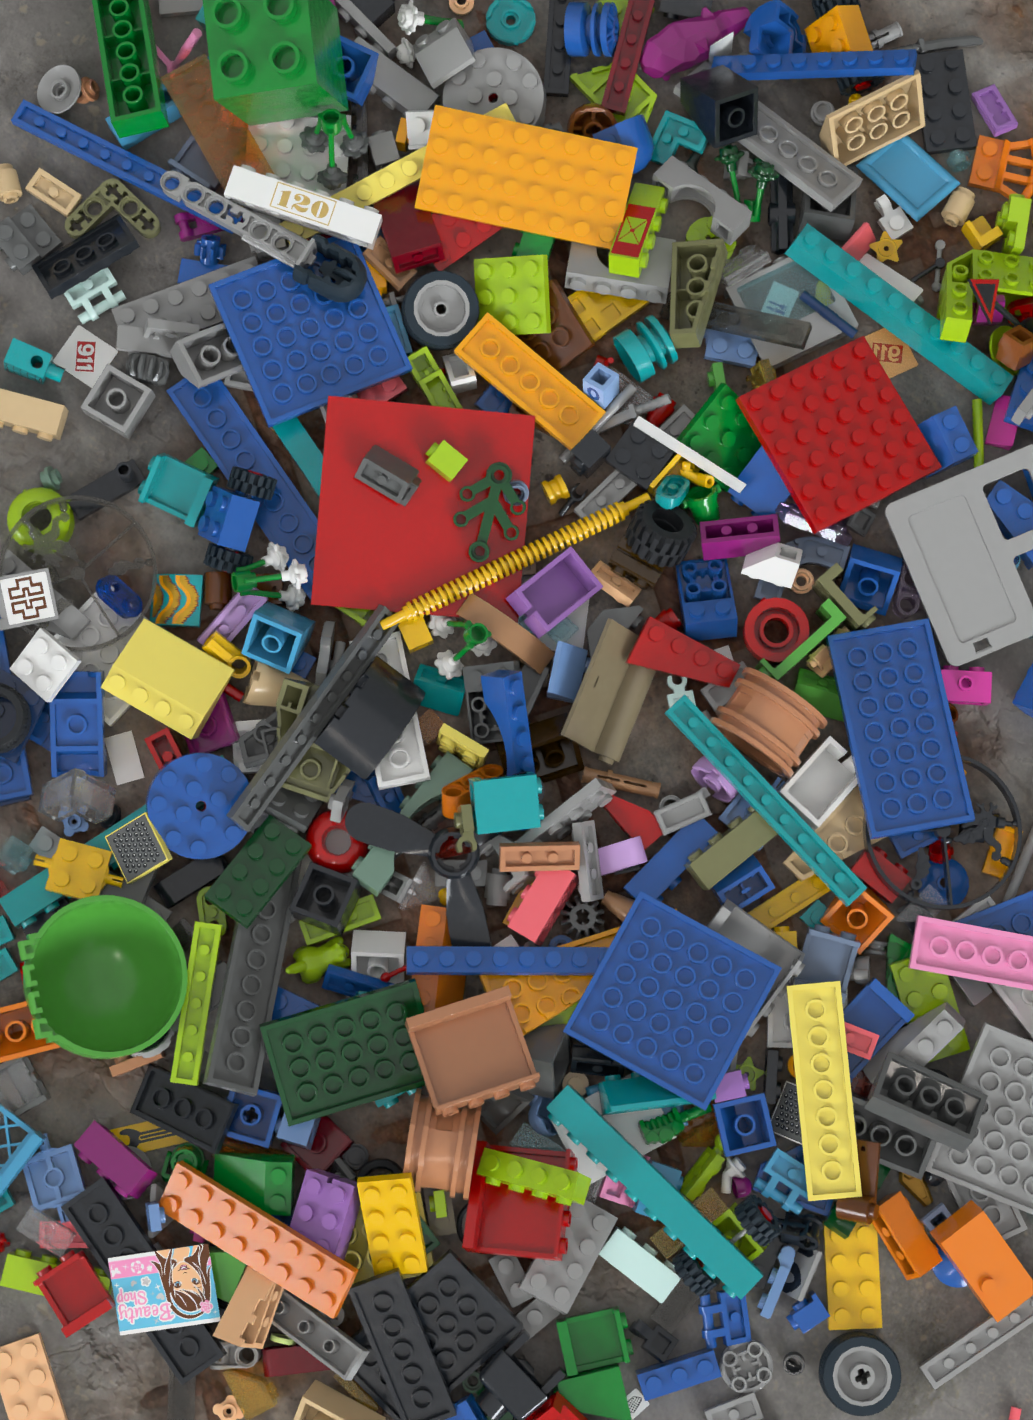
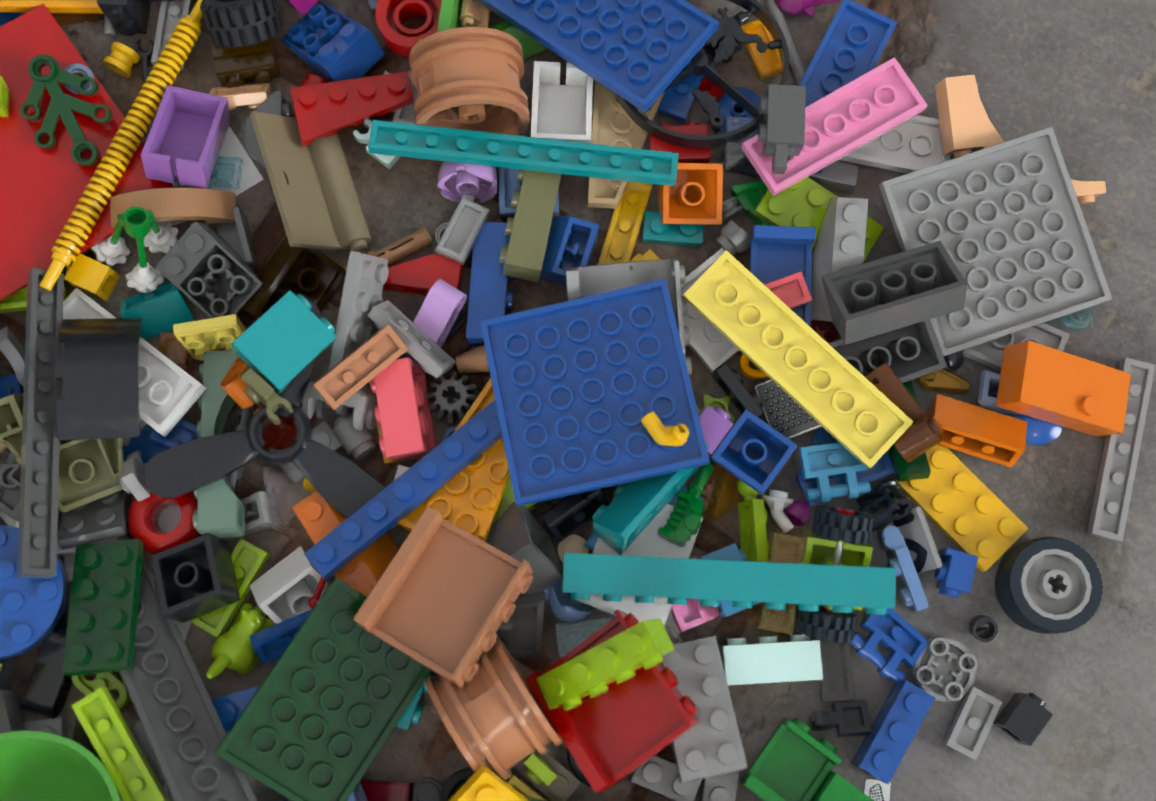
camera: 40 degrees left, 5 degrees down
(506, 700) = (213, 255): blue arch -> none
(567, 672) = (255, 197): medium blue slope -> none
(692, 1069) = (665, 435): none -> yellow arm
(828, 957) = (694, 242): sand blue panel -> none
(953, 928) = (782, 124): none -> dark grey hinge

